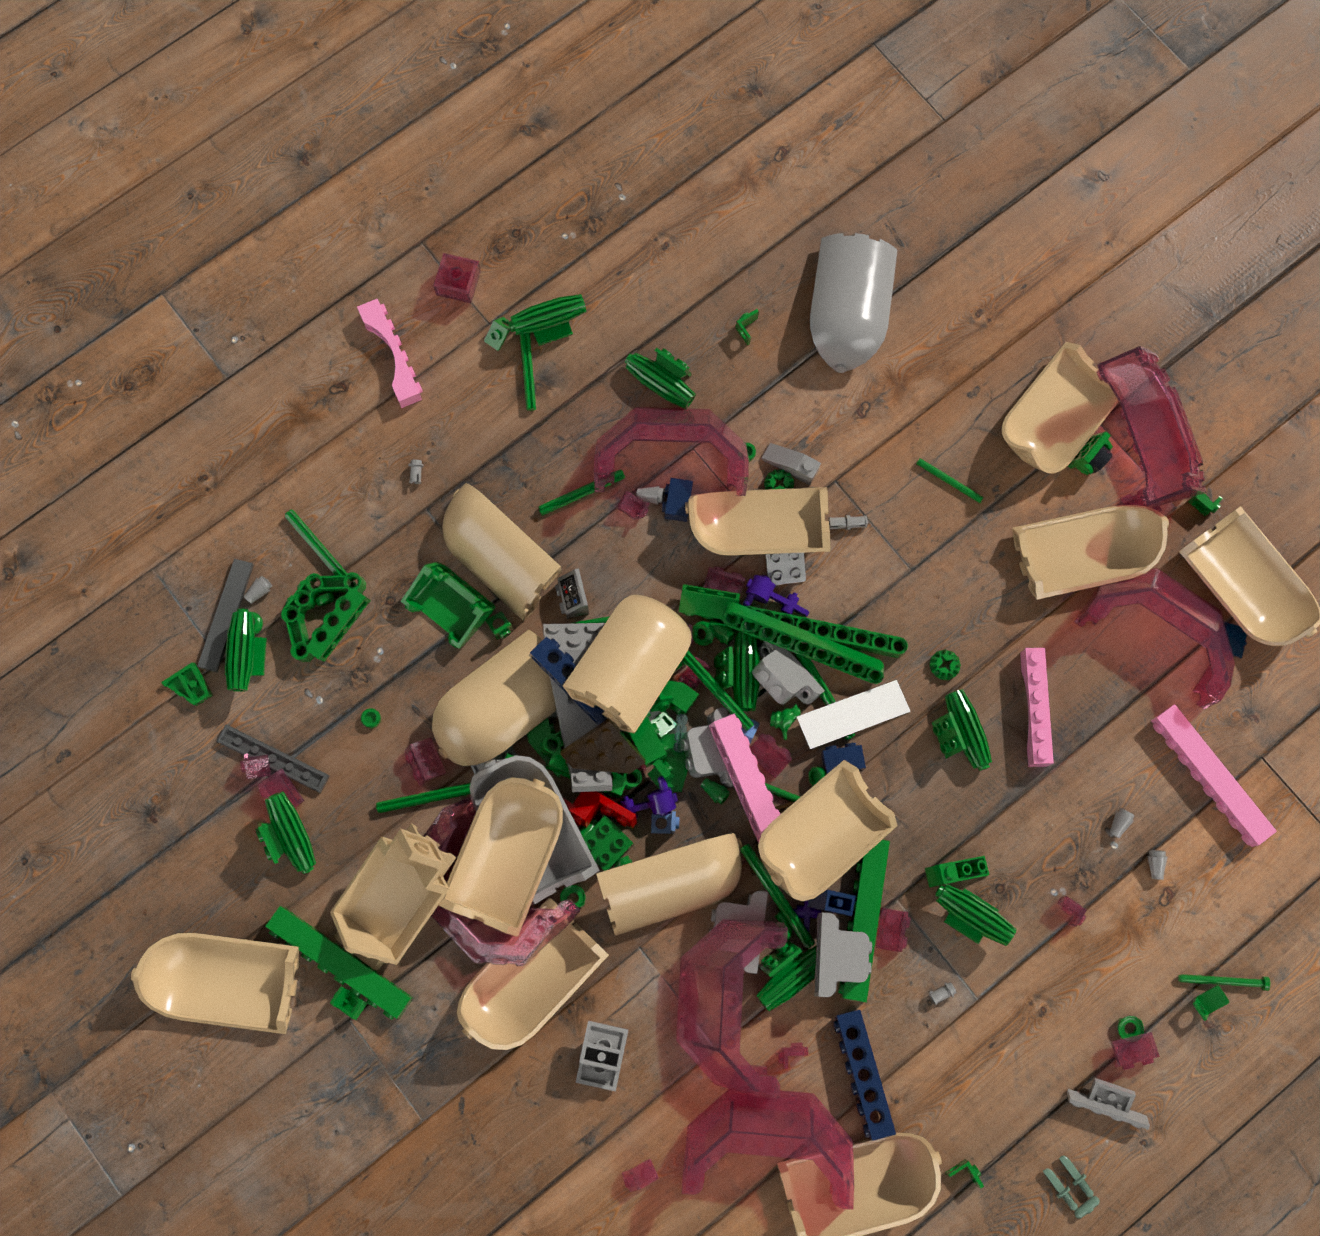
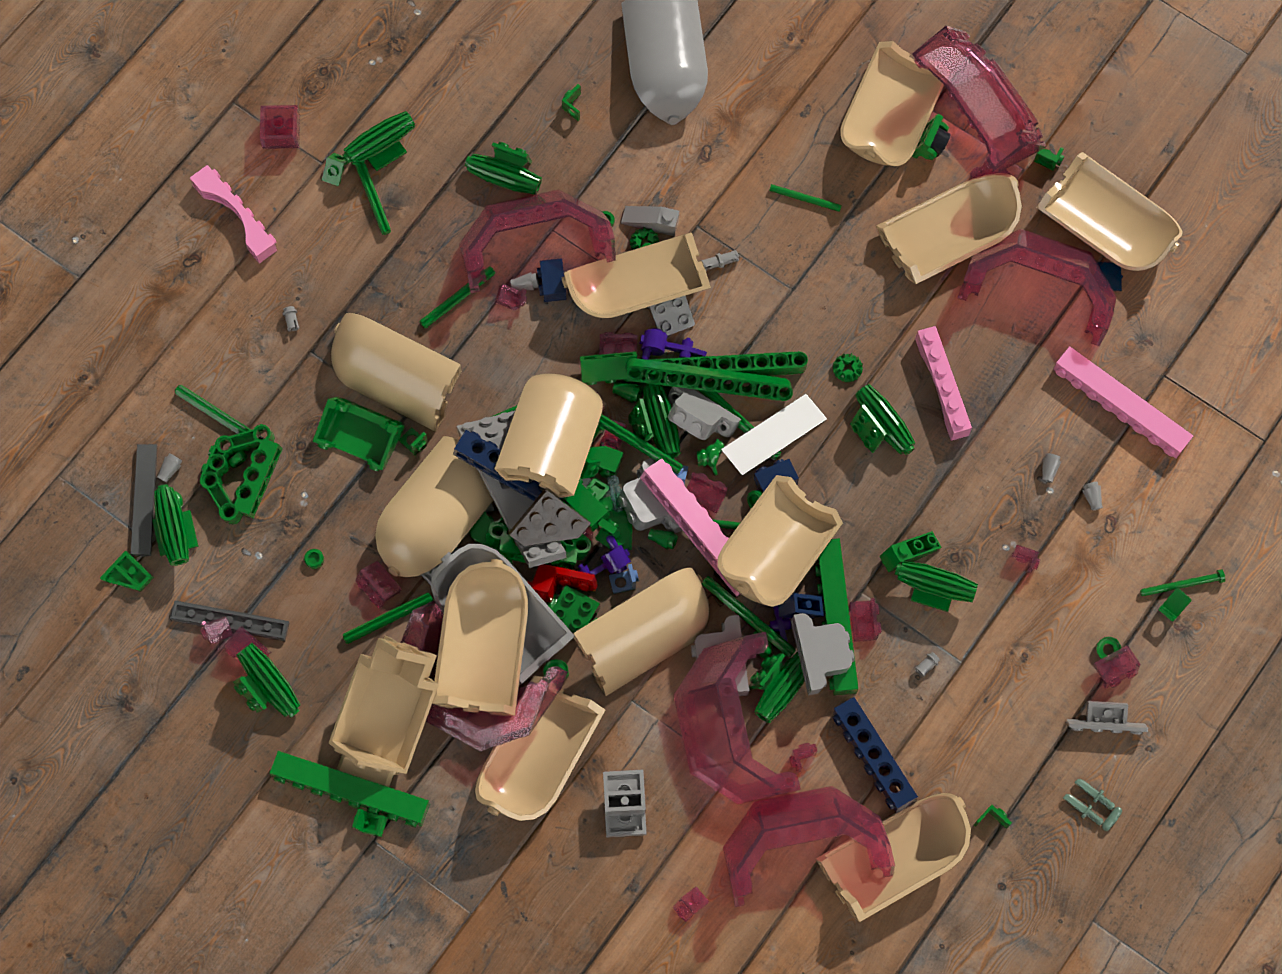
camera: 15 degrees left, 5 degrees down
(219, 981) = (240, 834): tan panel -> none
(573, 595) = (476, 393): slope -> none
(709, 630) = (618, 397): green piece -> none

